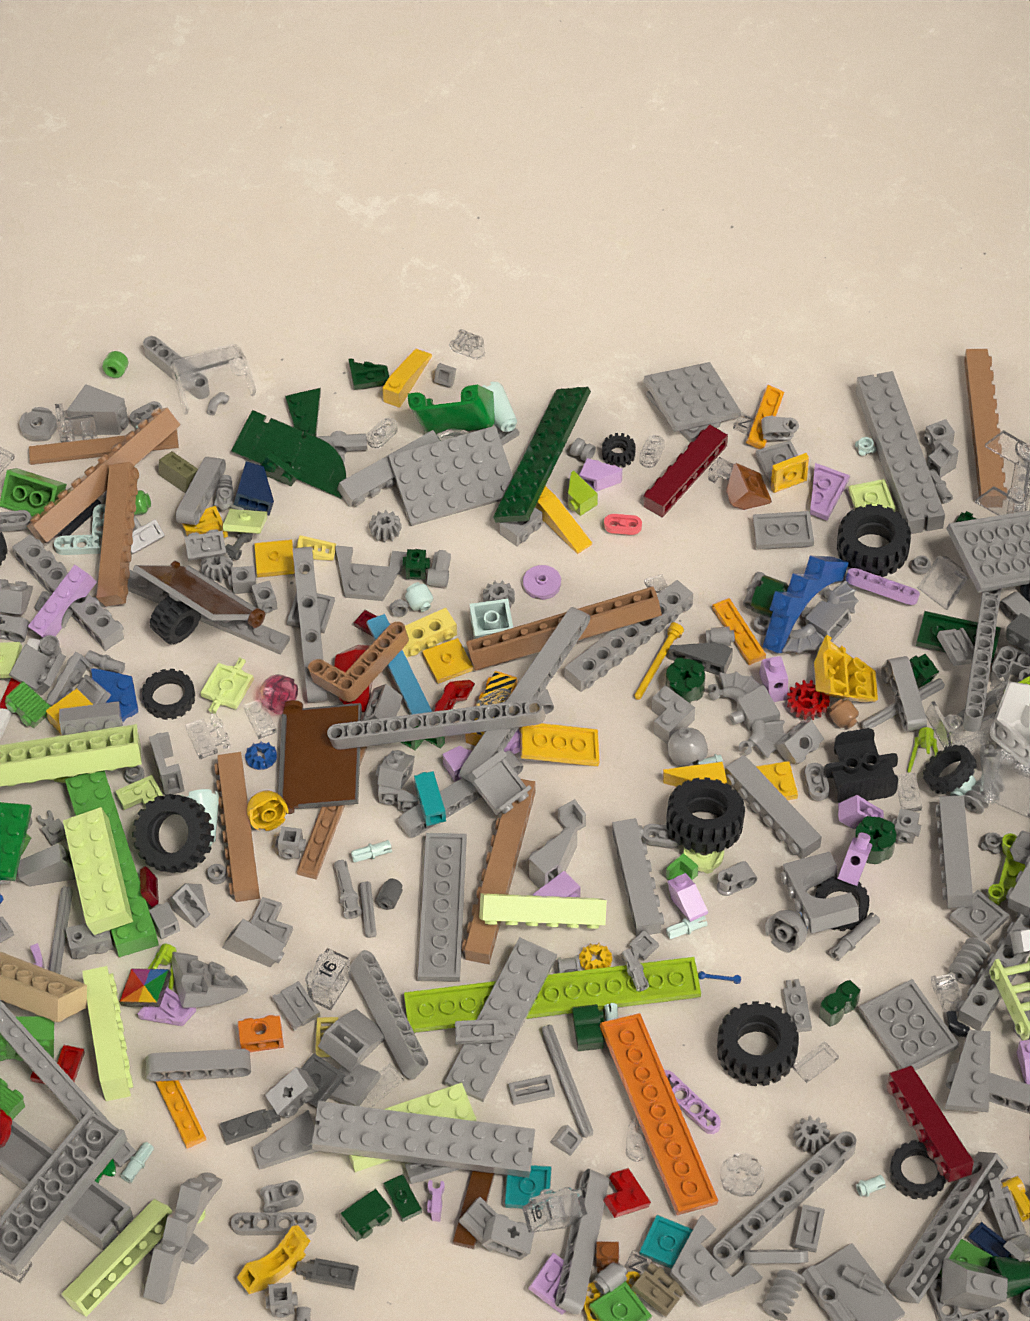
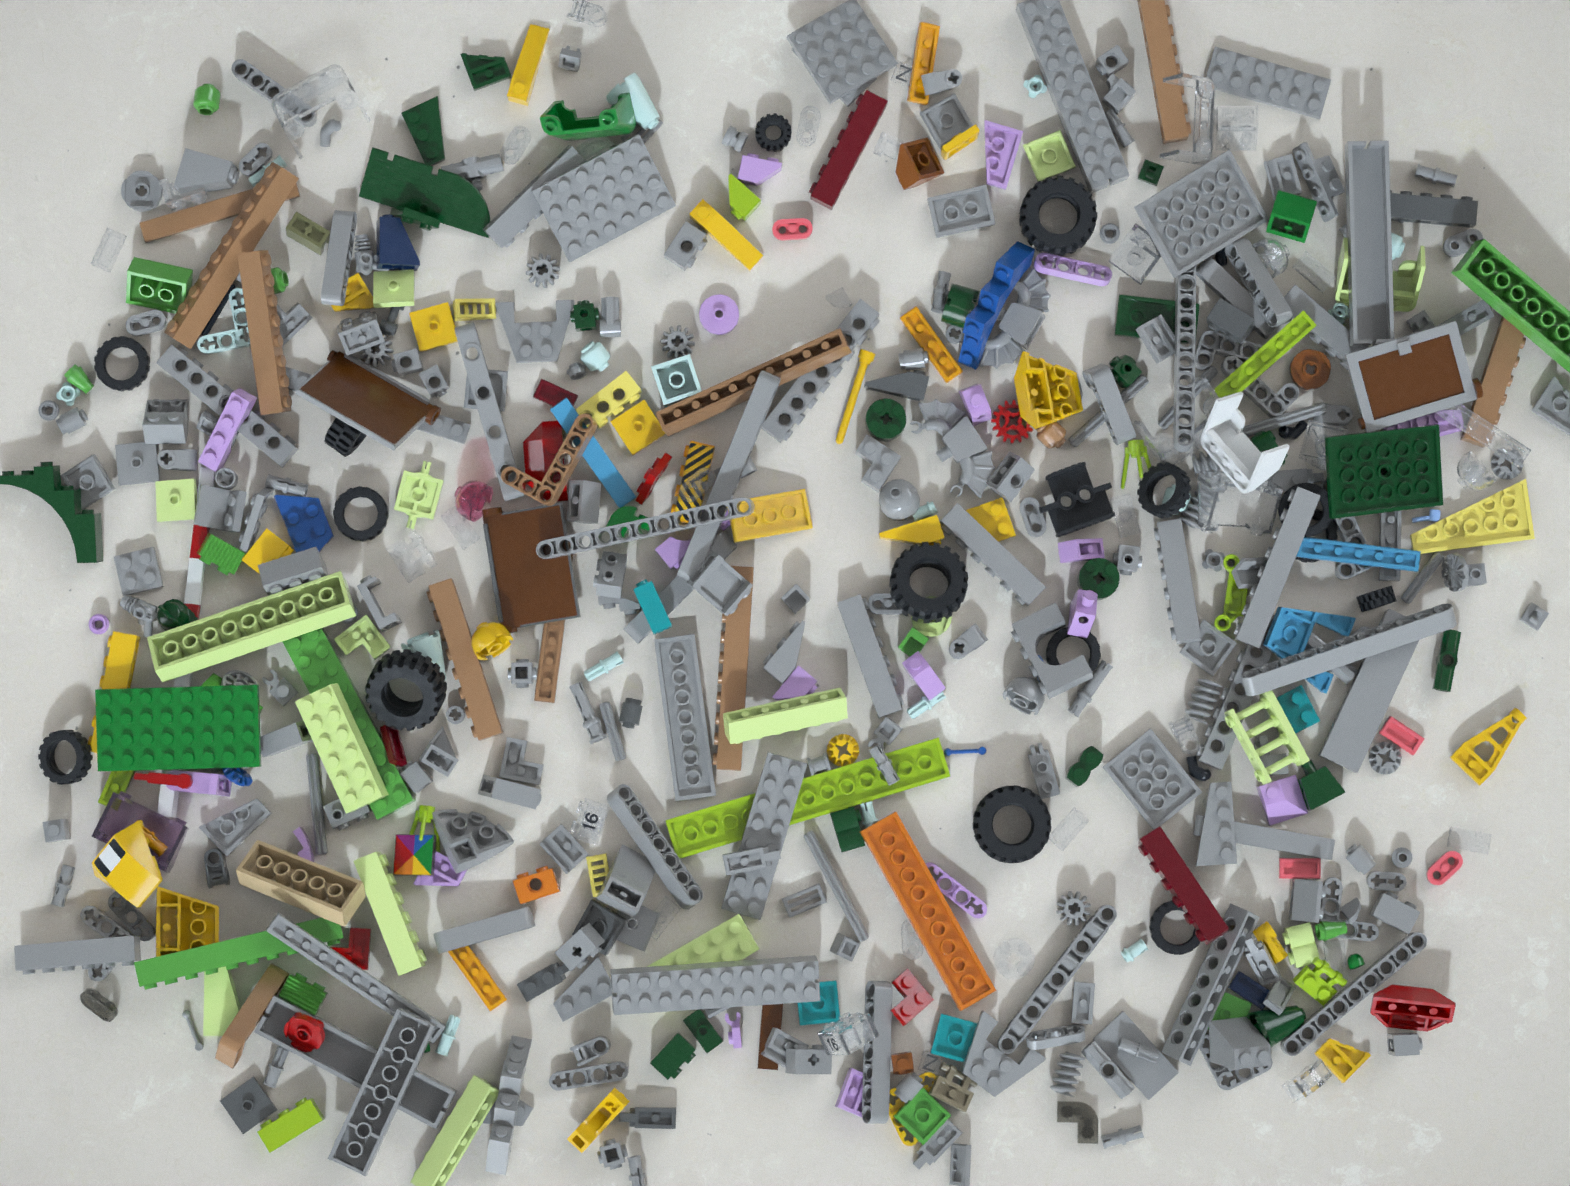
camera: 10 degrees left, 30 degrees up
(93, 691) = (283, 526): light grey tile -> none
(258, 762) = (480, 571): blue gear -> none
(542, 455) = (694, 157): dark green plate -> none

